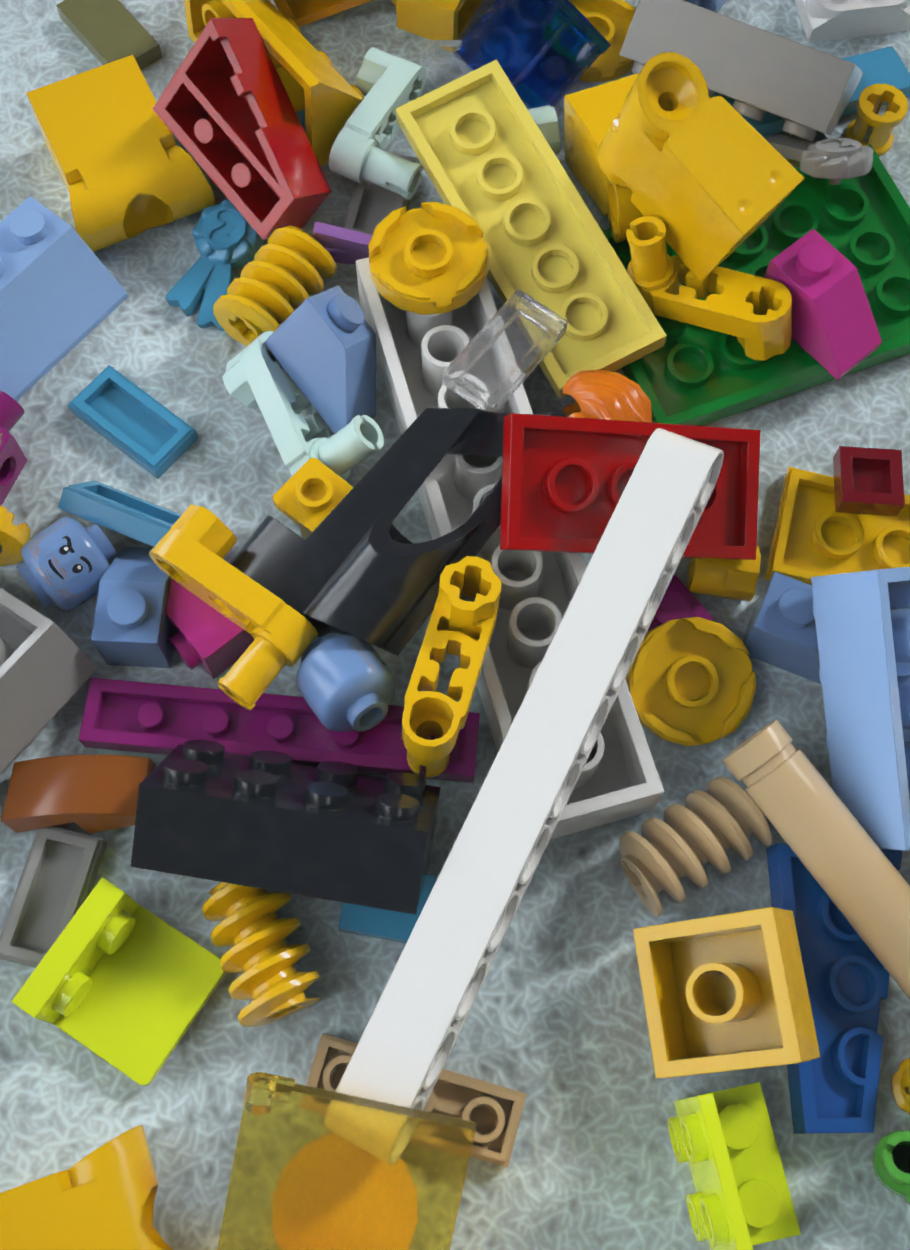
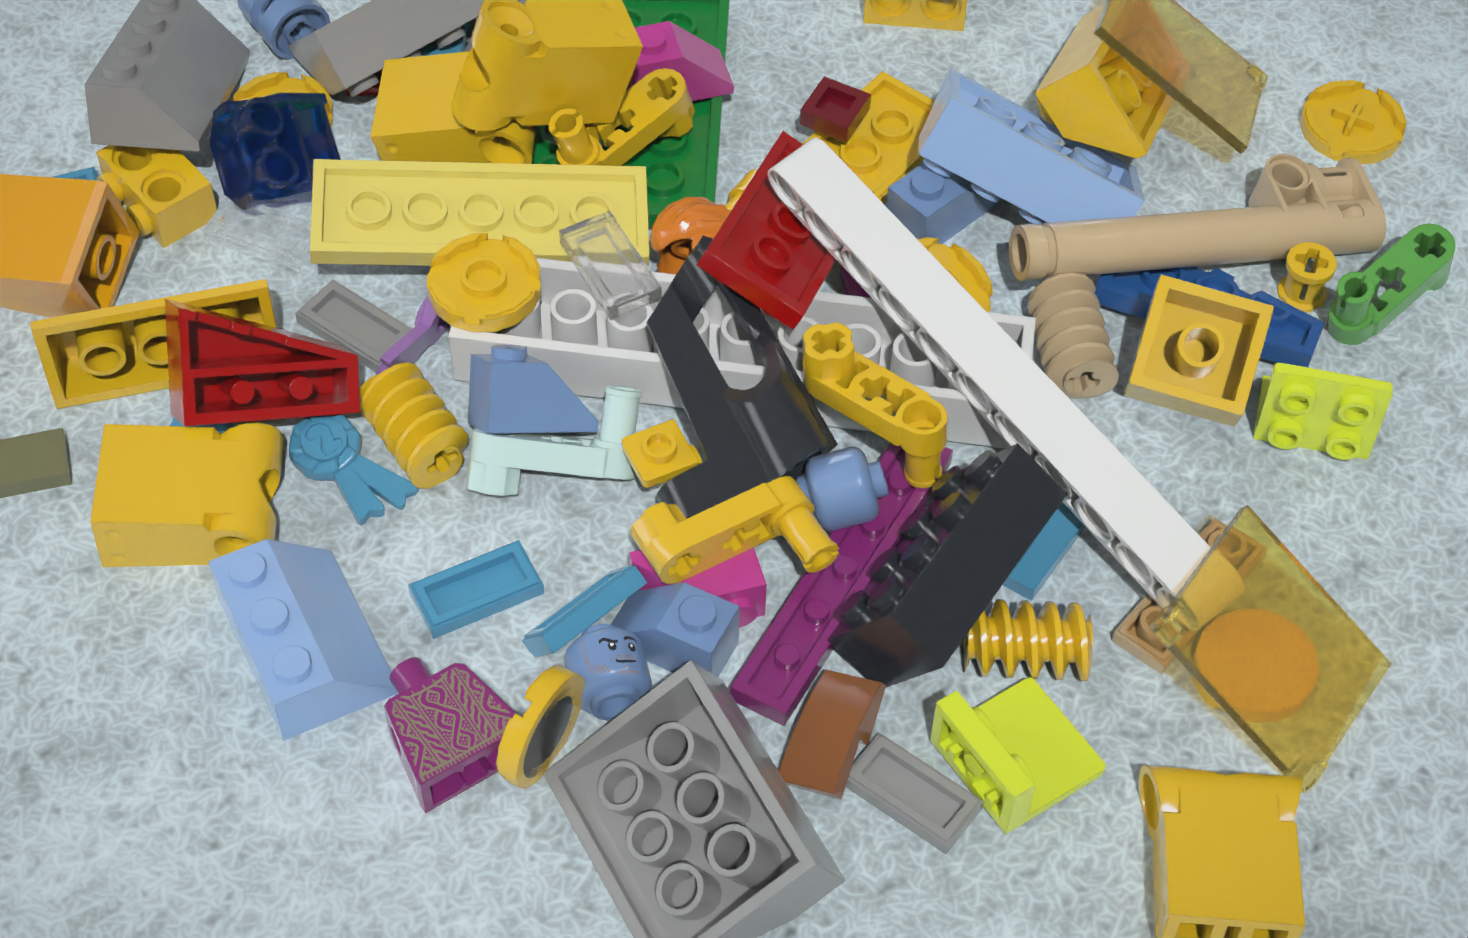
camera: 65 degrees left, 15 degrees down
(362, 142) = (292, 289): light aqua beam -> none

